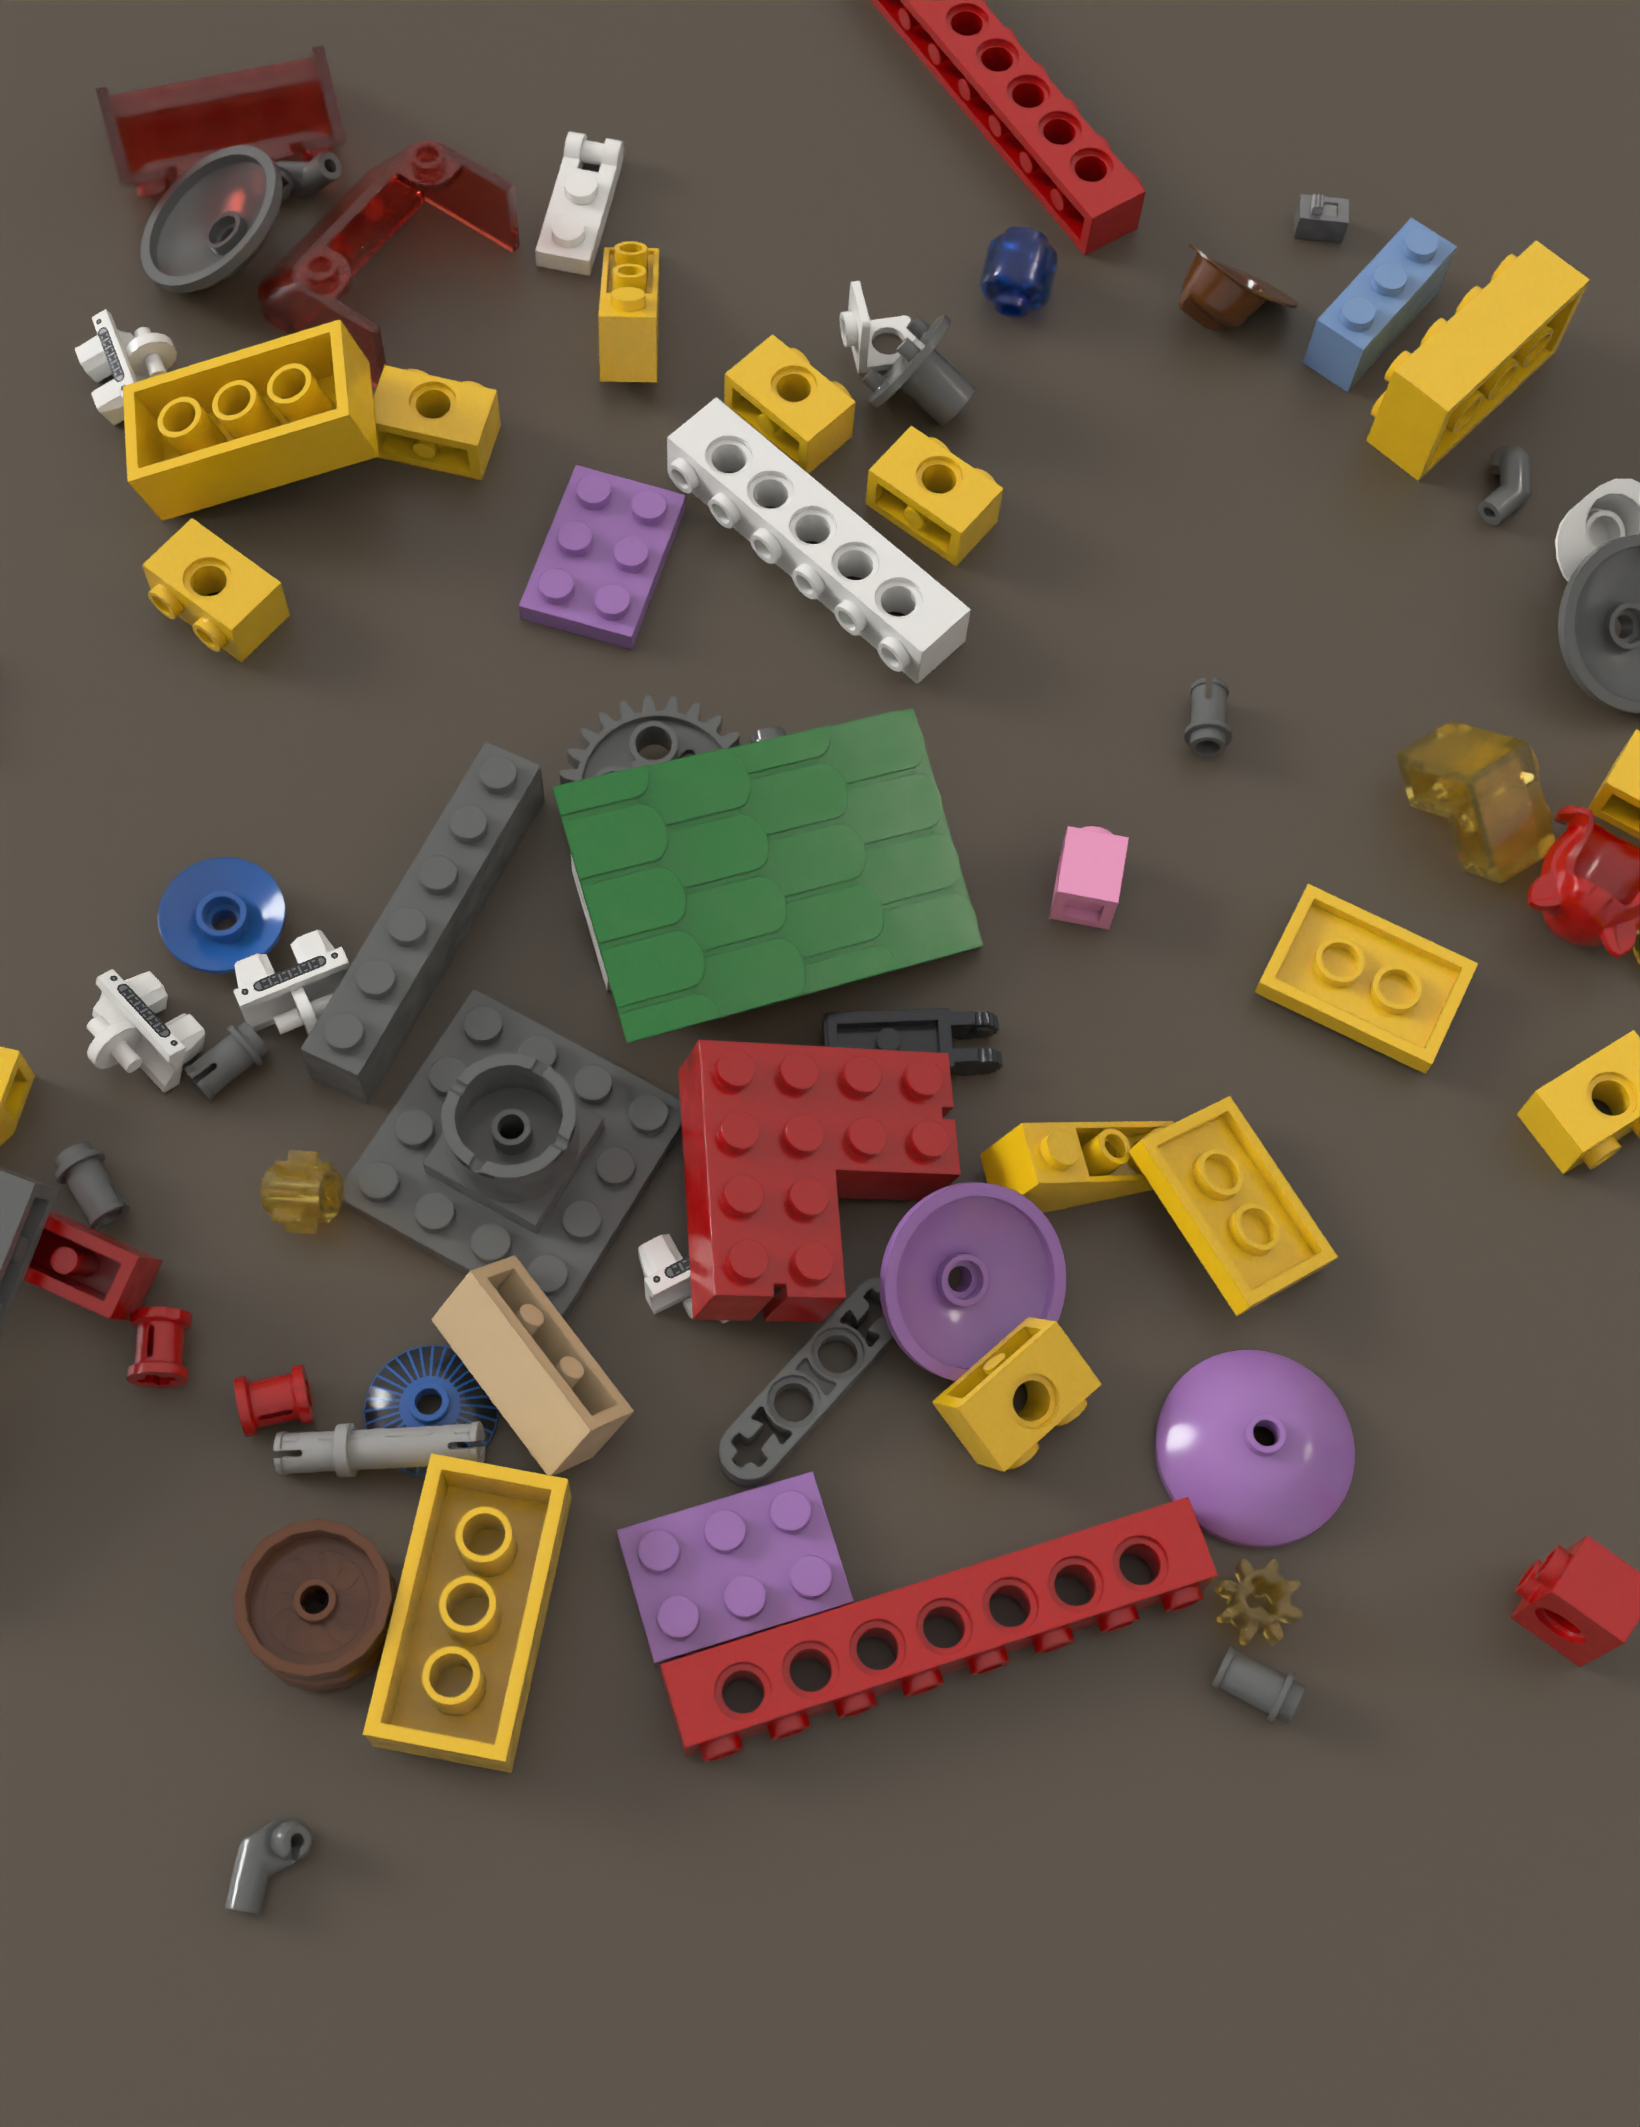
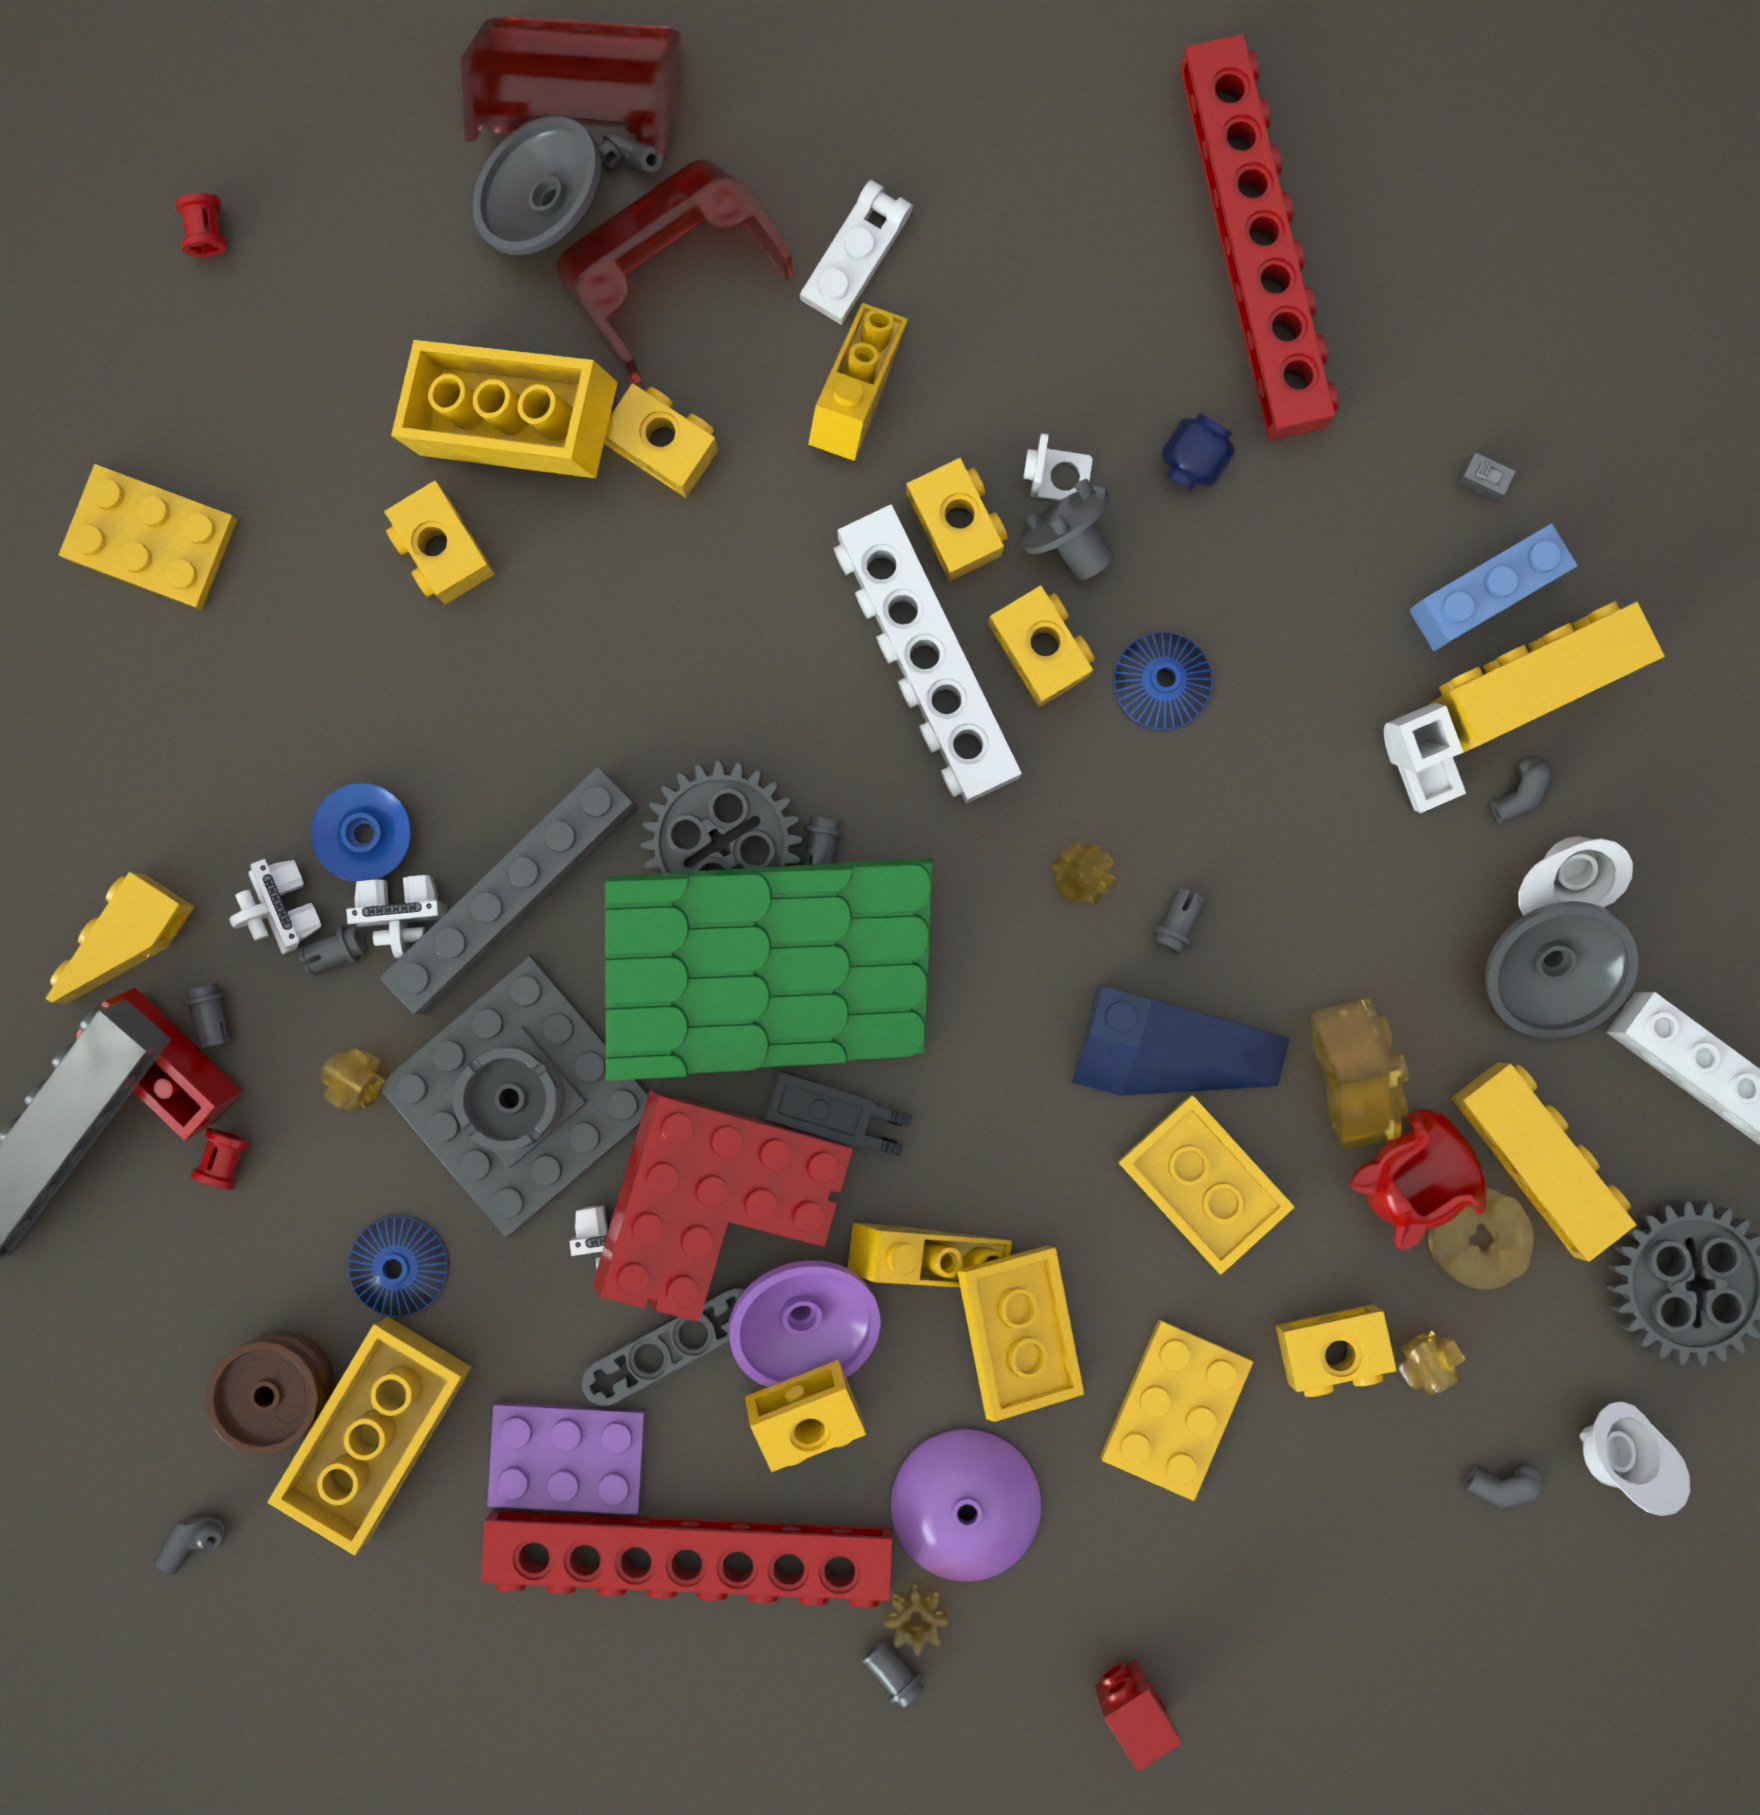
camera: 30 degrees right, 20 degrees up
(125, 357) = (433, 300): white hips -> none
(274, 1400) = (288, 1226): red bush -> none
(378, 1448) = (331, 1283): light grey pin -> none
(531, 1365) = (471, 1273): tan brick -> none
(603, 557) = (756, 607): medium lavender plate -> none
(1071, 711) = (1084, 873): none -> clear yellow gear
(1074, 517) = (1145, 698): none -> dish
(1089, 877) = (1027, 1026): bright pink brick -> none
(1223, 295) = (1372, 530): reddish brown piece -> none
(1246, 847) = (1161, 1048): none -> dark blue wedge
(1378, 466) = (1424, 752): none -> white brick
(1451, 1244) = (1176, 1409): none -> yellow plate

